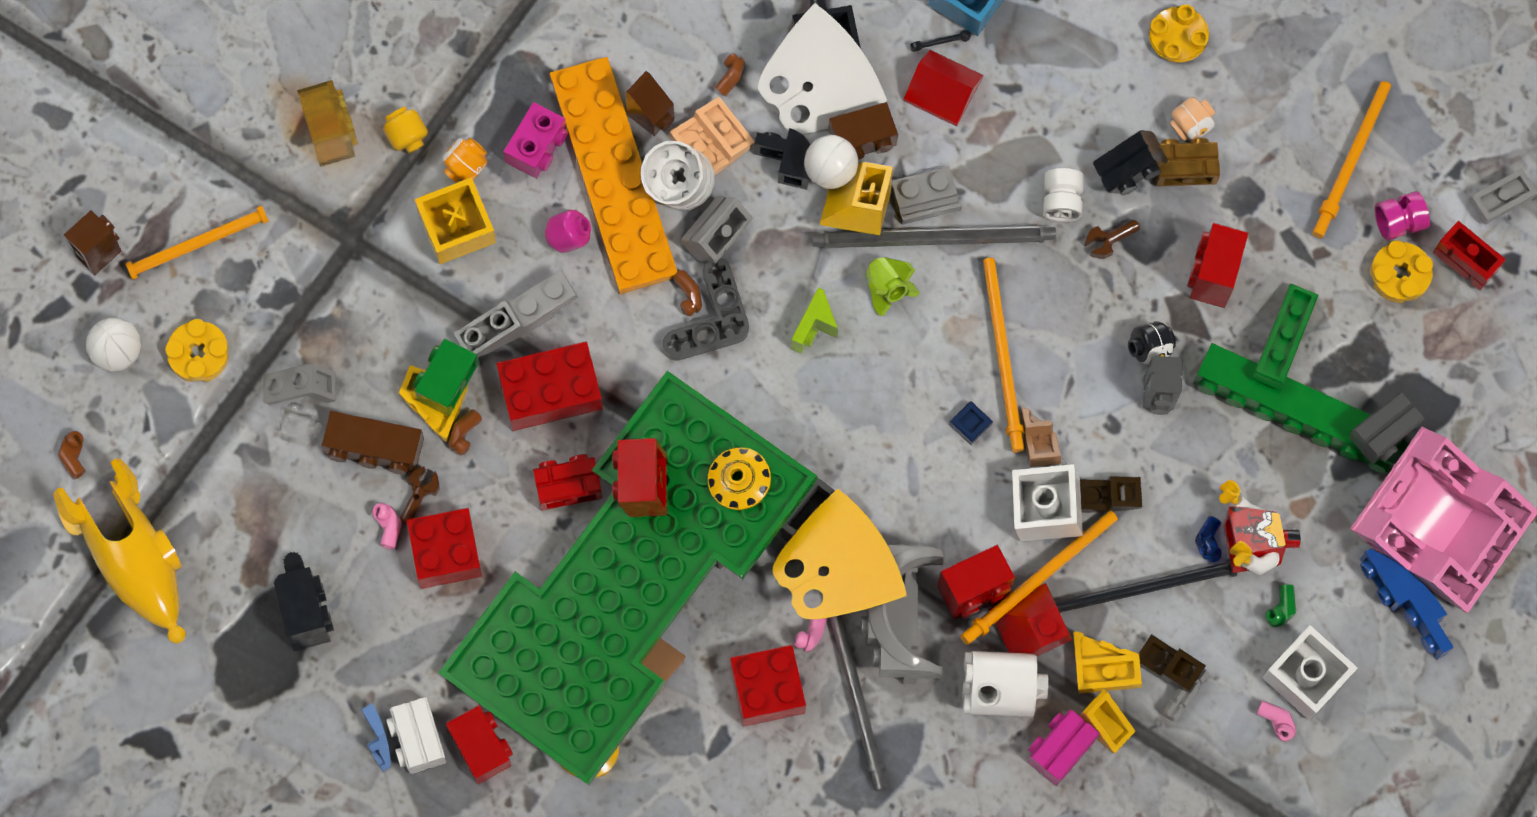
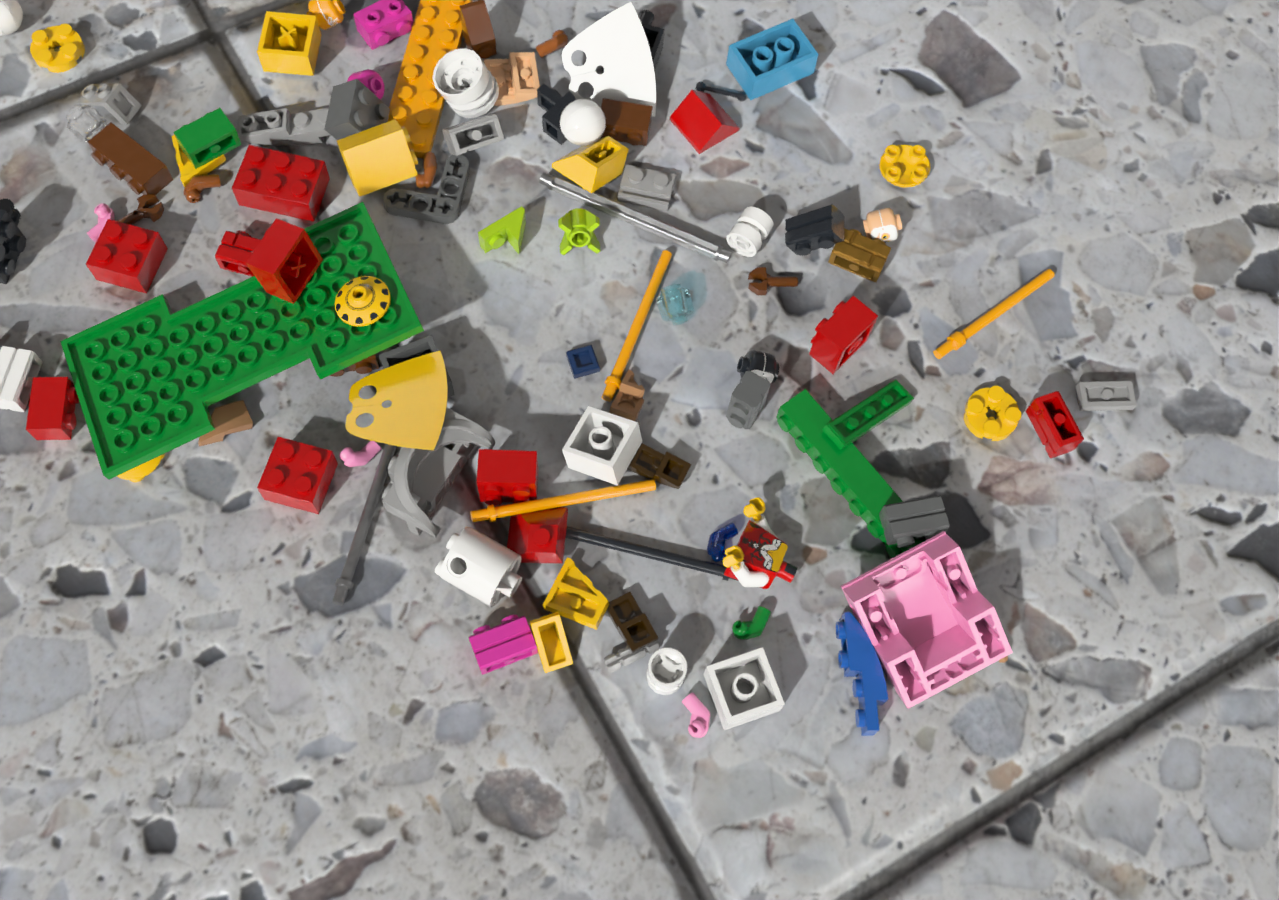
camera: 25 degrees right, 5 degrees down
(590, 275) = (354, 110): none -> dark grey brick
(639, 308) = (378, 157): none -> yellow brick
(1031, 314) = (675, 304): none -> clear light blue head
(1230, 693) = (666, 671): none -> white wheel
(1407, 214) = (1017, 370): dark pink wheel -> none

